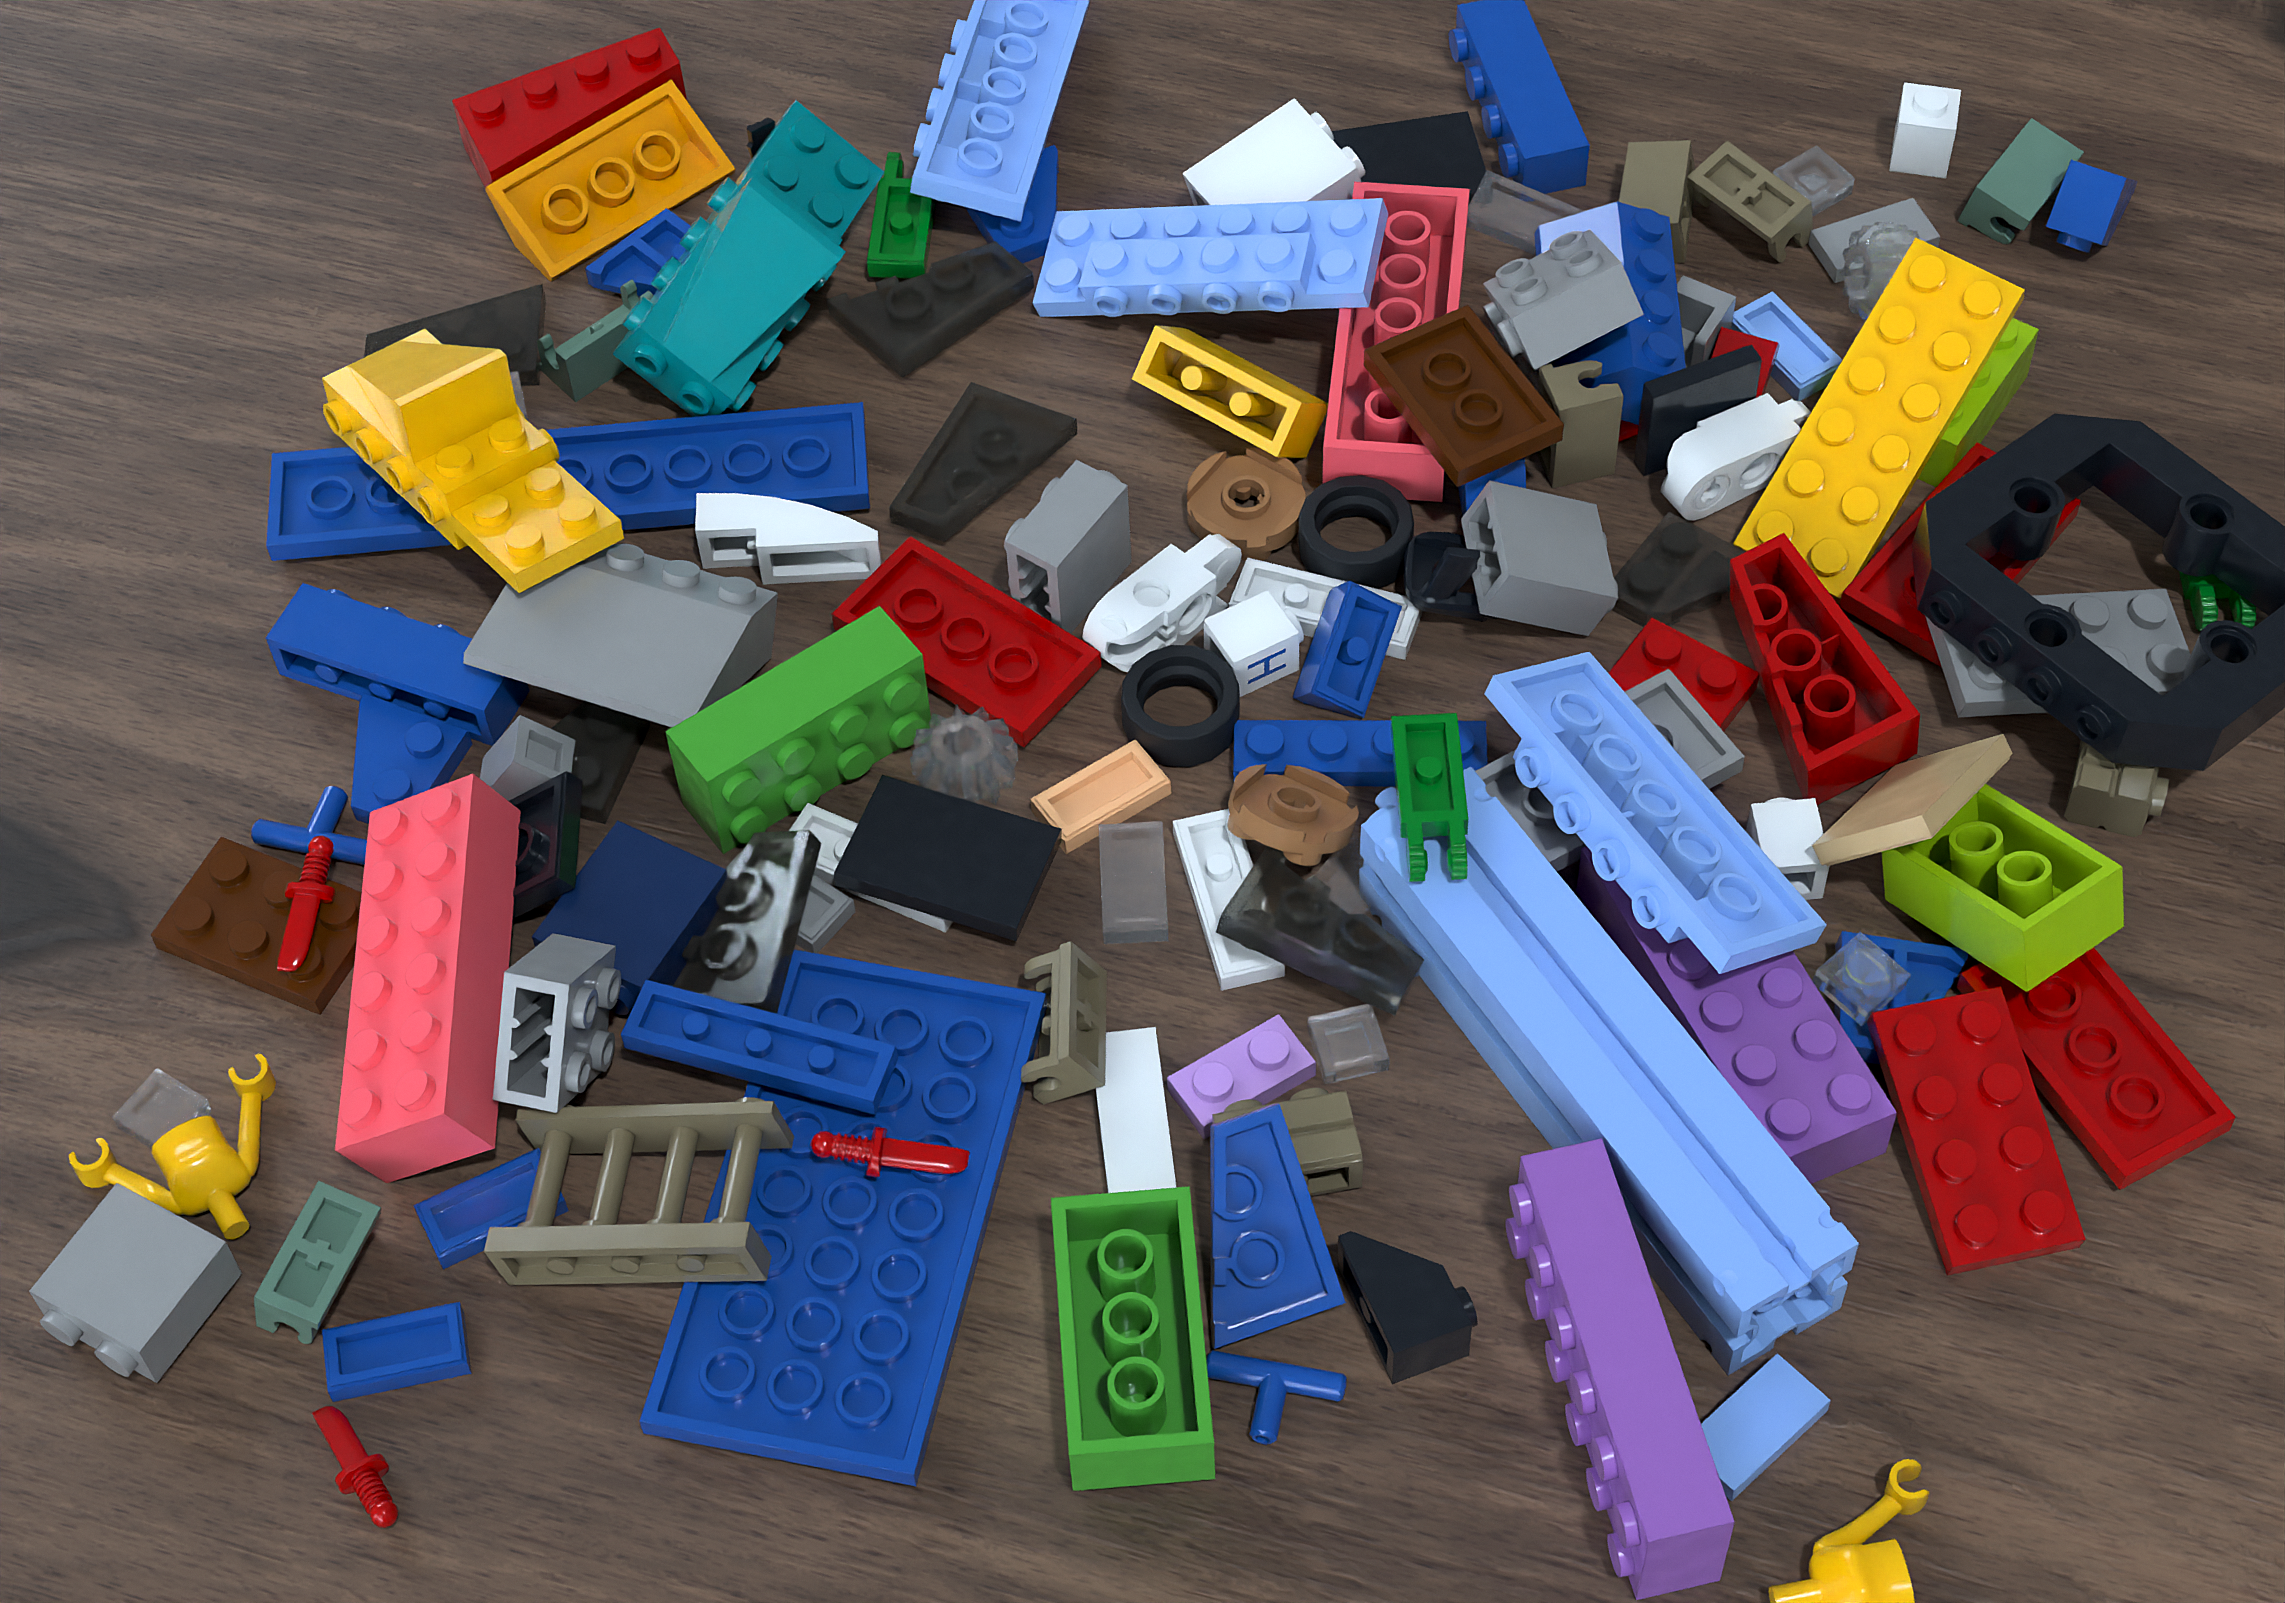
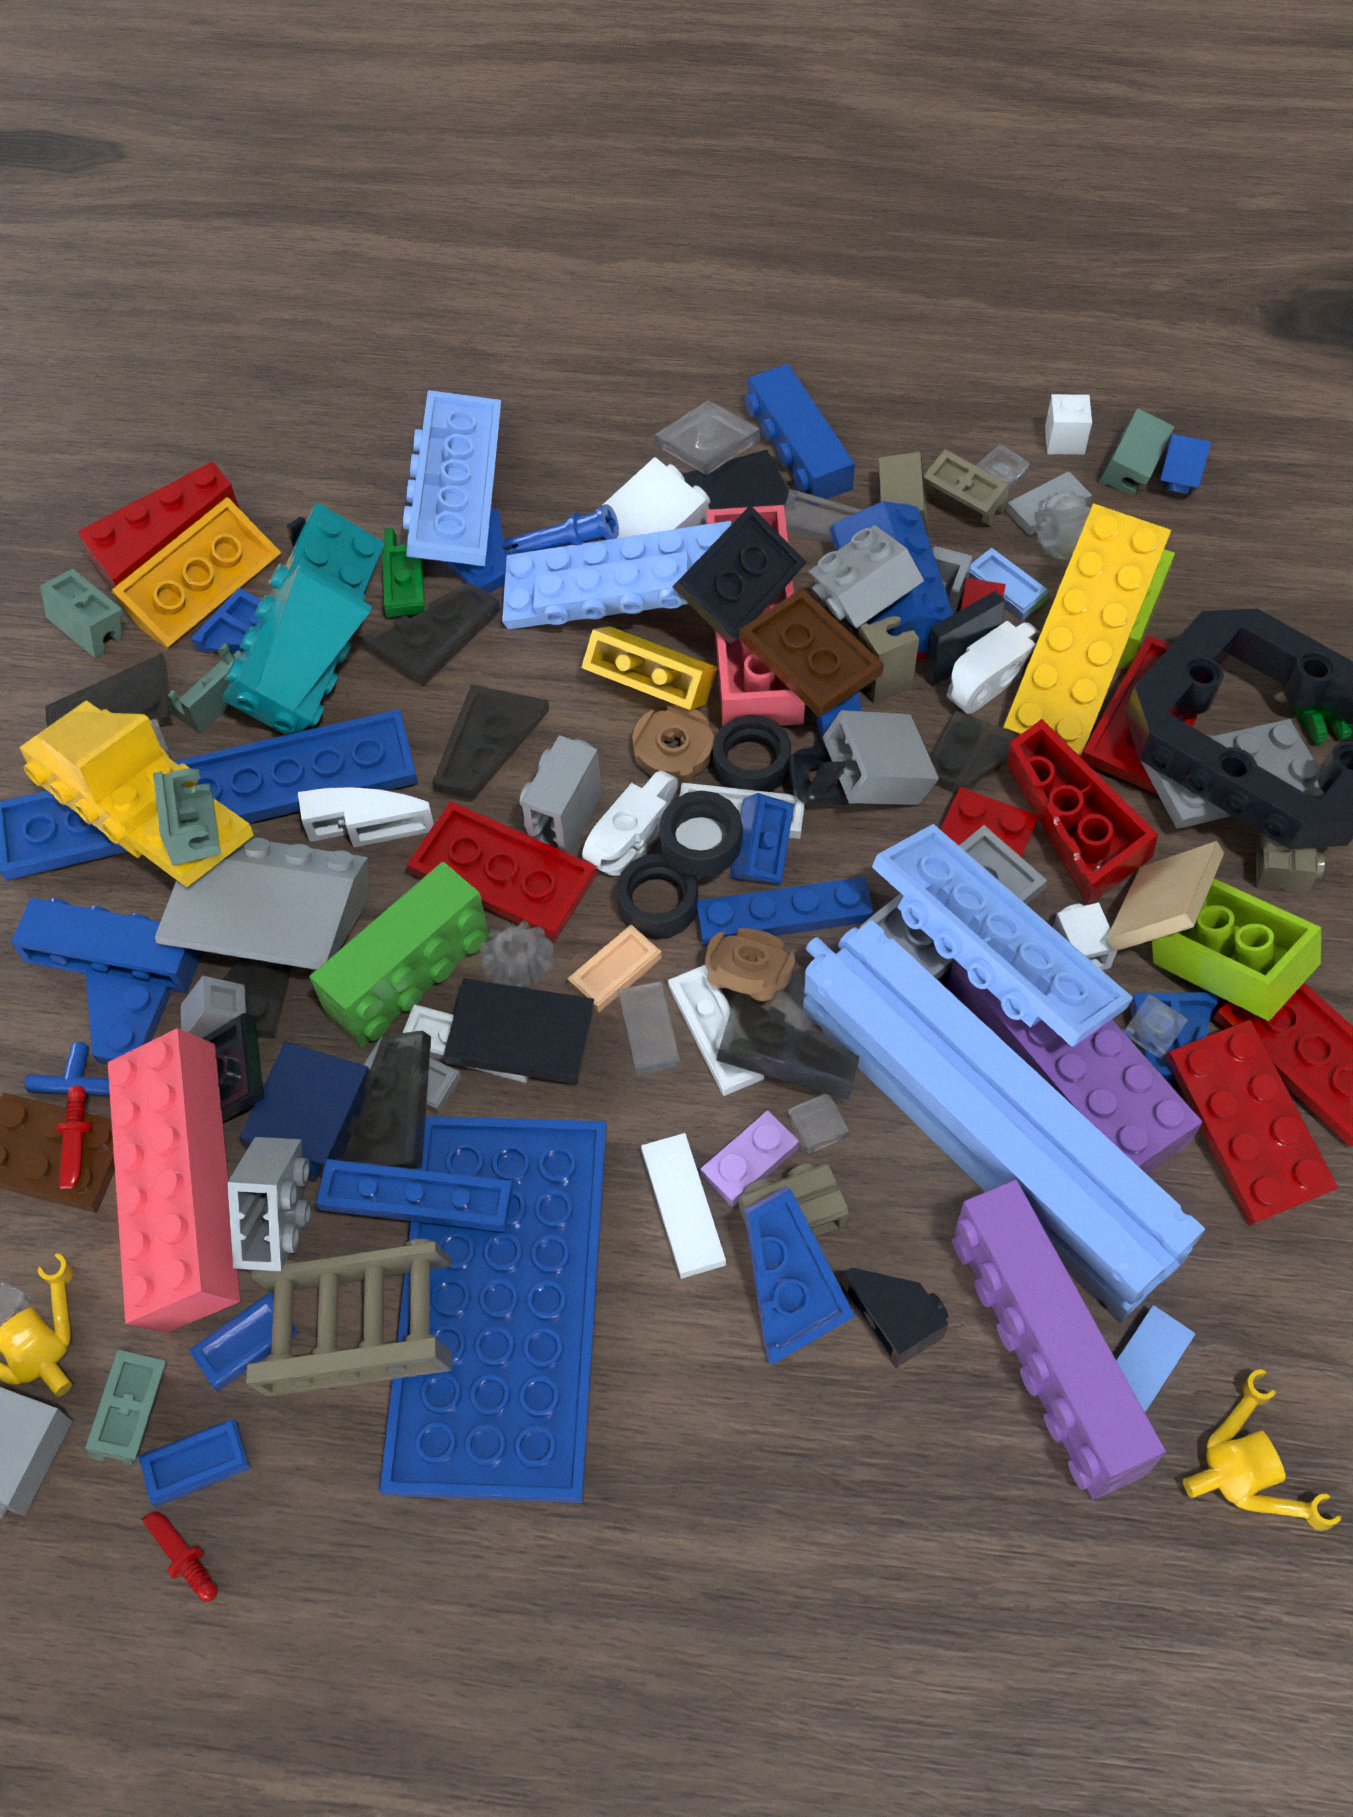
camera: 10 degrees left, 5 degrees up
(439, 212) = (81, 611): none -> sand green hinge
(534, 494) = (186, 816): none -> sand green hinge
(890, 1153) = (520, 1259): red piece -> none
(1073, 1026) = (628, 1142): dark tan hinge -> none
(1132, 1339) = (716, 1371): bright green brick -> none
(1159, 188) = (575, 531): none -> blue pin
(1255, 585) = (697, 805): none -> black tyre
(1273, 1382) = (816, 1381): blue piece -> none
(1380, 273) = (739, 574): none -> black tile
(1383, 83) = (707, 437): none -> clear plate
(1430, 789) = (850, 943): green hinge -> none

